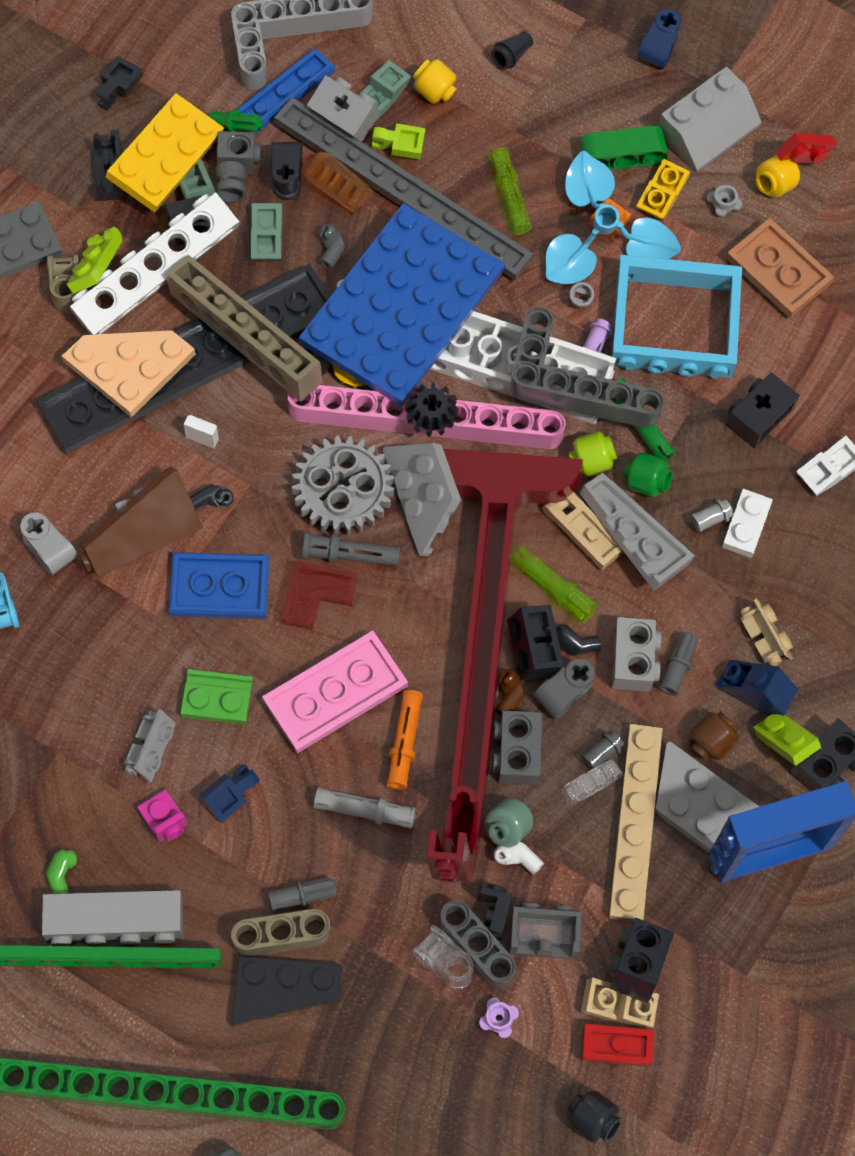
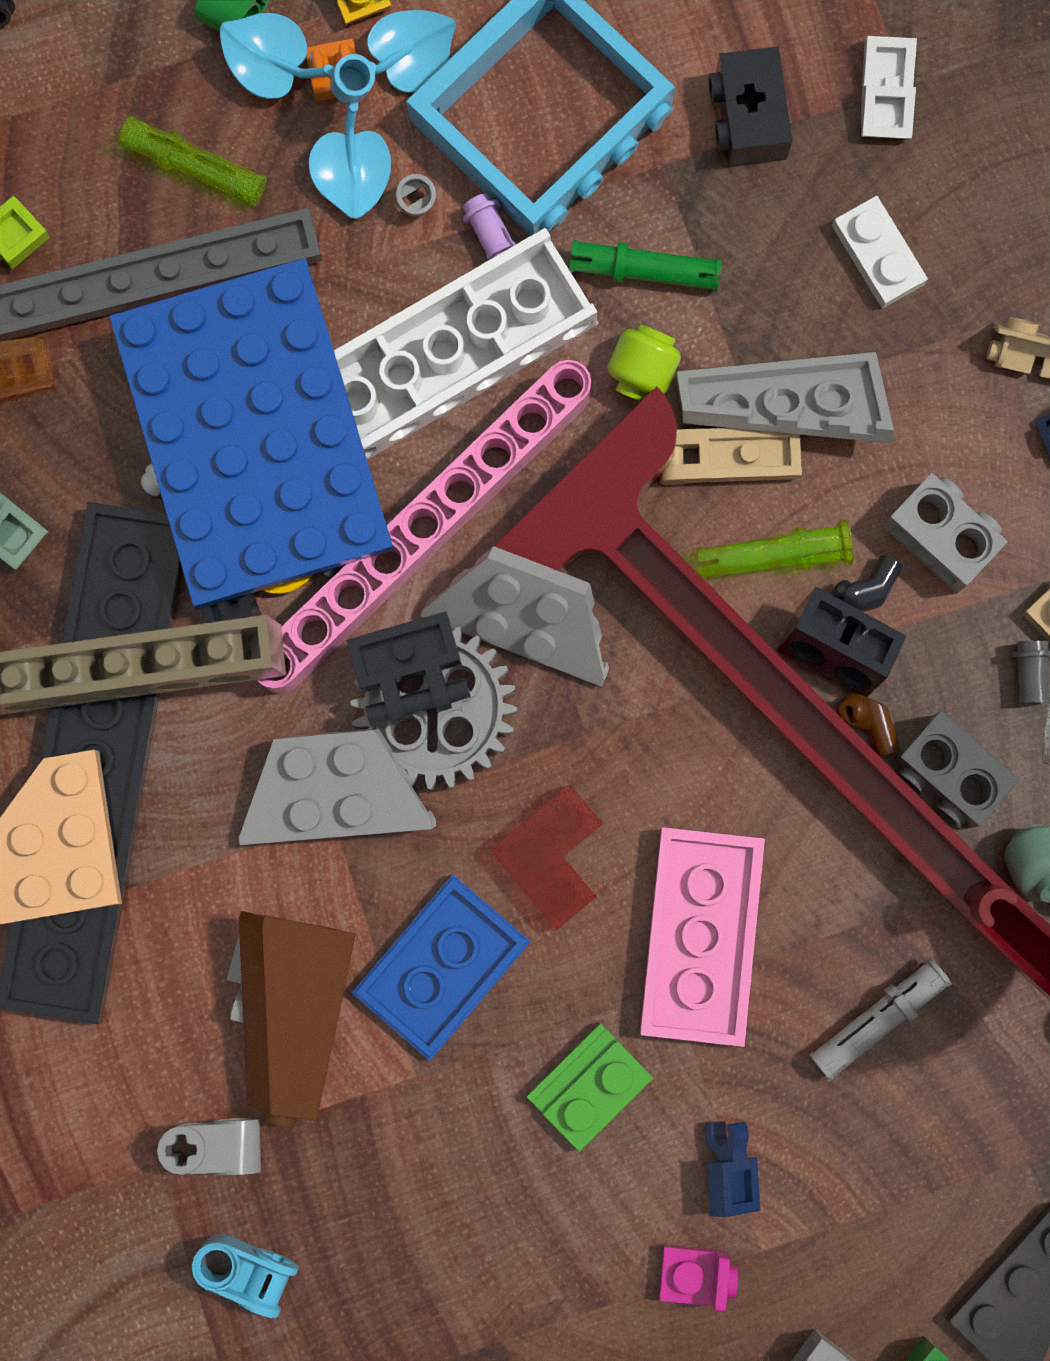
camera: 45 degrees left, 15 degrees up
(156, 732) = (604, 1241): light grey hinge -> none
(201, 431) = (213, 827): white tile -> none
(213, 496) = (311, 882): black arm -> none
(264, 467) = (332, 789): none -> light grey wing
(264, 926) = (963, 1276): dark tan beam -> none
(302, 894) = (929, 1182): dark grey axle -> none
(334, 245) = (82, 447): dark grey arm -> none
(354, 444) = (403, 654): none -> black plate
(389, 556) = (511, 785): dark grey pin -> none
(402, 752) = (874, 946): orange pin -> none
(436, 420) = (436, 501): black gear -> none
(561, 691) = (925, 659): dark grey piece -> none
(574, 382) = (544, 313): dark grey beam -> none
(648, 475) = (726, 318): green head -> none
(678, 663) = (994, 487): dark grey axle -> none
(712, 515) = (839, 285): light grey pin -> none

